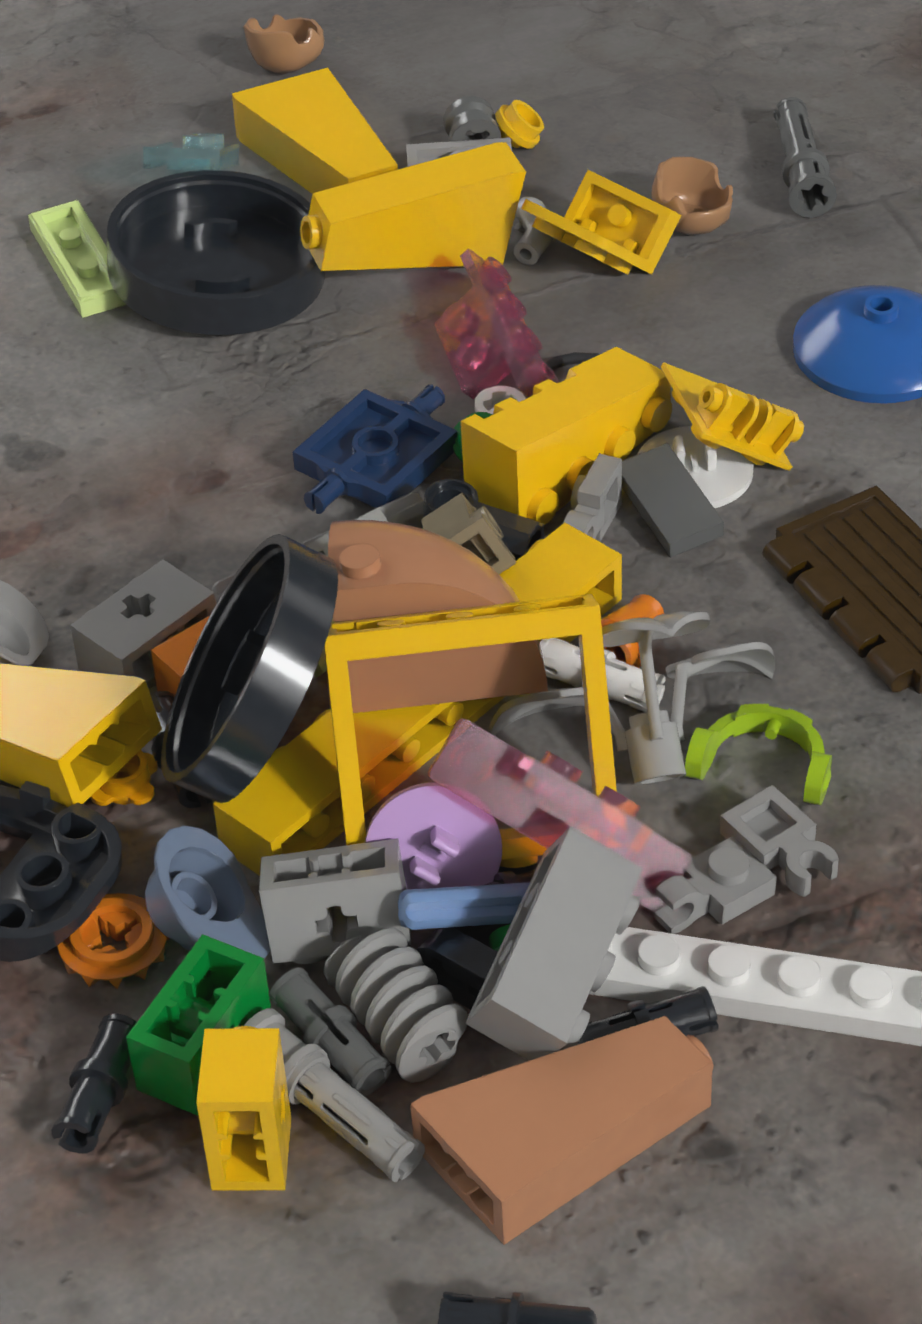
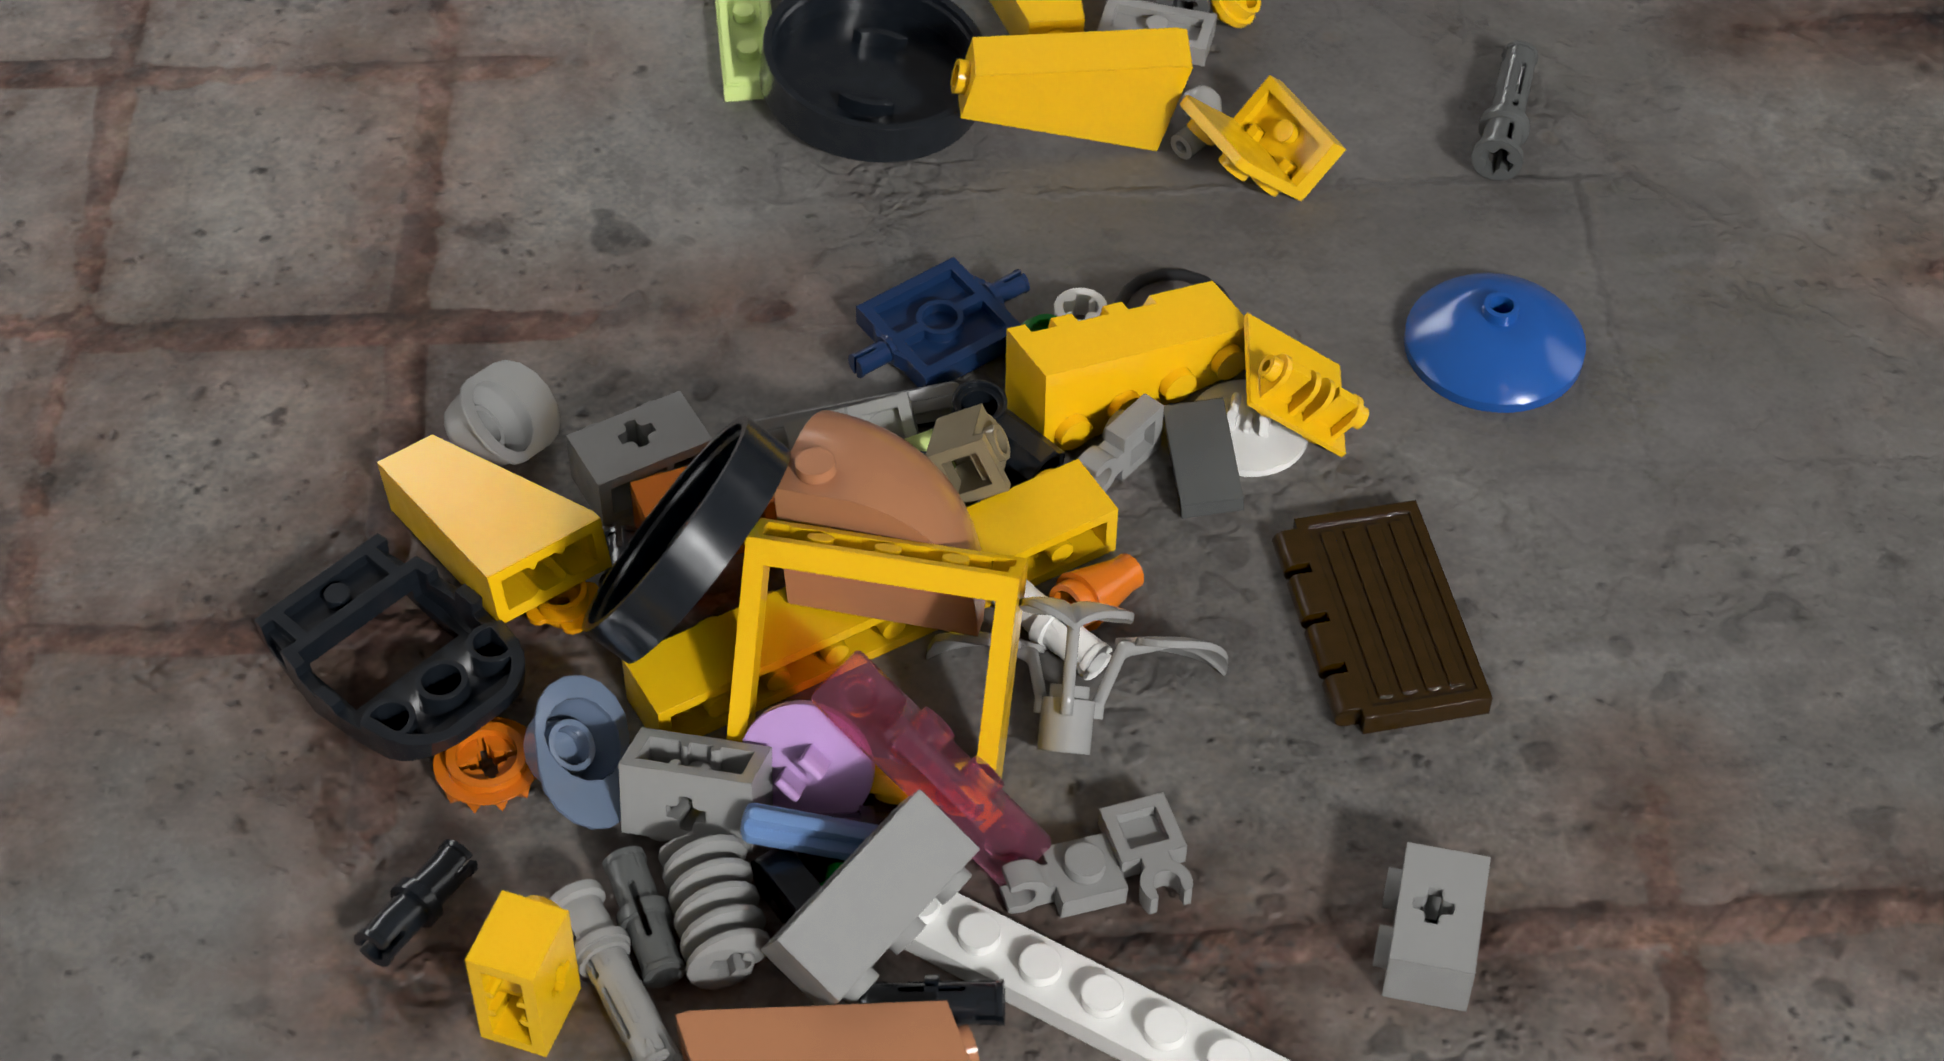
camera: 15 degrees right, 5 degrees up
(209, 990) = (526, 856): green brick -> none
(488, 333) = (1104, 229): clear pink bracket -> none
(693, 191) = (1371, 126): medium nougat hair -> none
(771, 721) = (1121, 729): lime piece -> none

